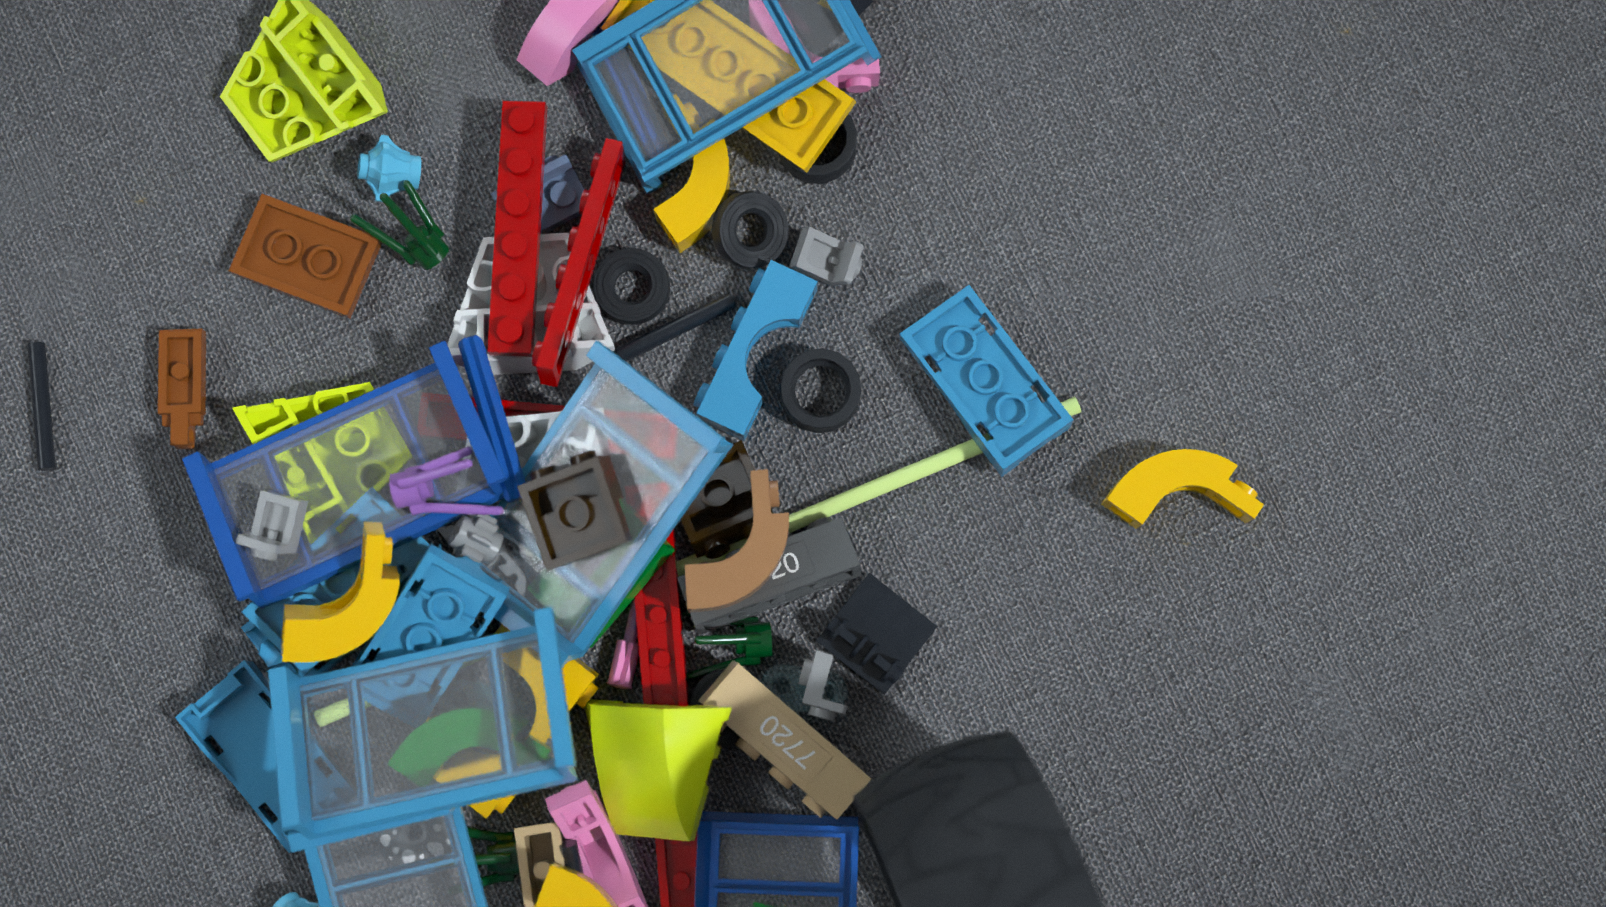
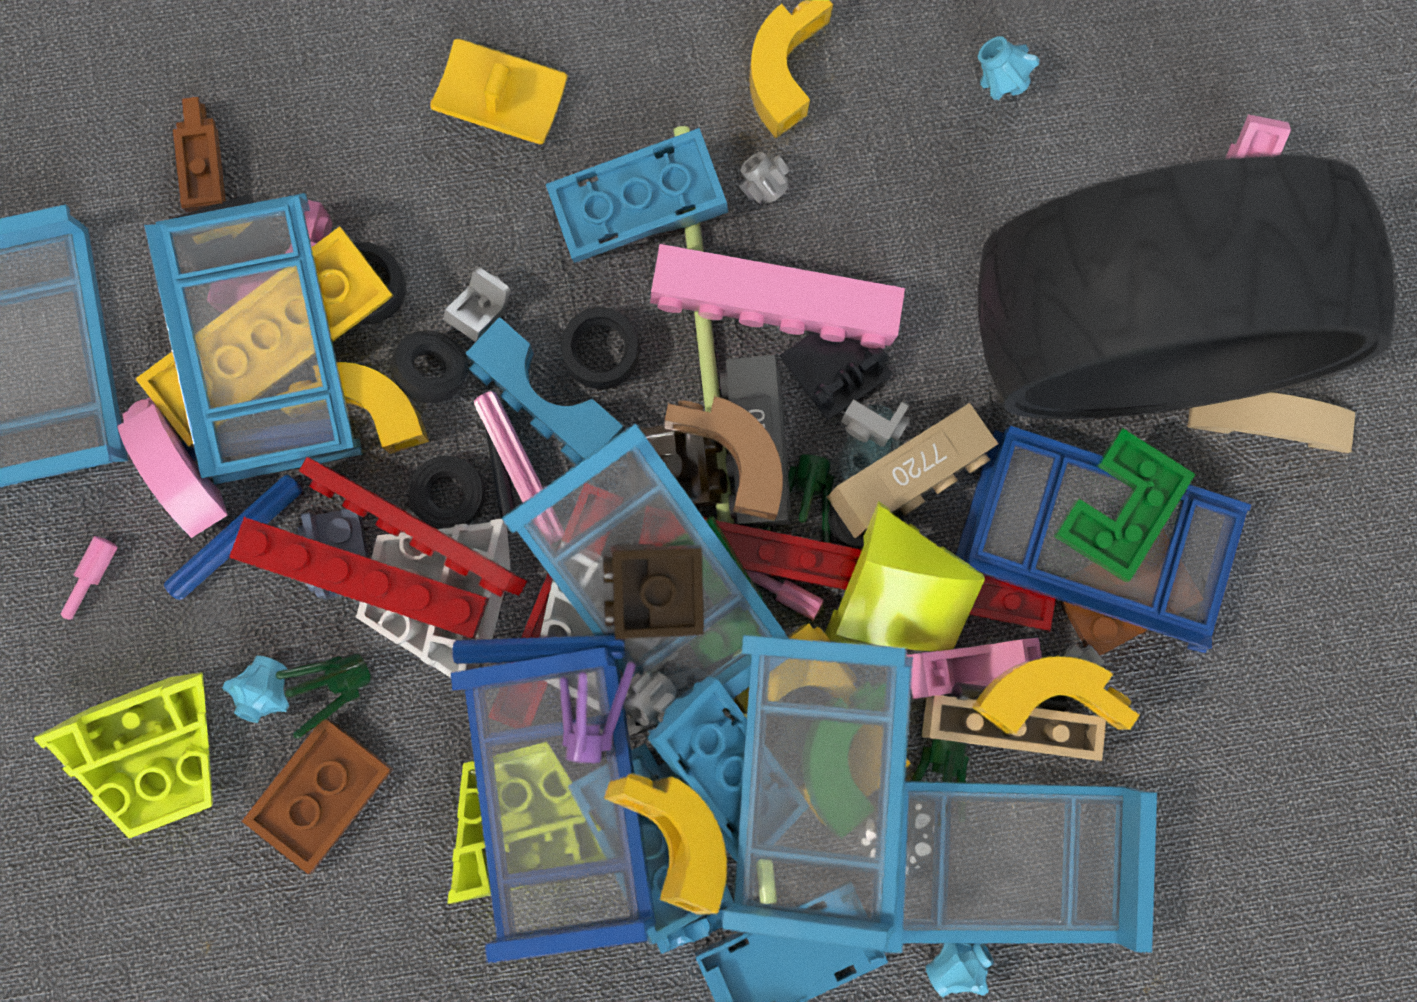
camera: 80 degrees left, 0 degrees up
(182, 383) = (405, 950): dark orange hinge -> none
(275, 525) = (582, 886): light grey bracket -> none
(516, 89) = (220, 547): none -> blue axle
(690, 333) = (508, 445): none -> bright pink axle
(924, 550) = (776, 296): none -> bright pink brick
(1048, 502) = (764, 177): none -> light grey gear
(1055, 210) = (499, 91): none -> yellow shield
(1249, 720) = (1005, 67): none -> medium azure rock

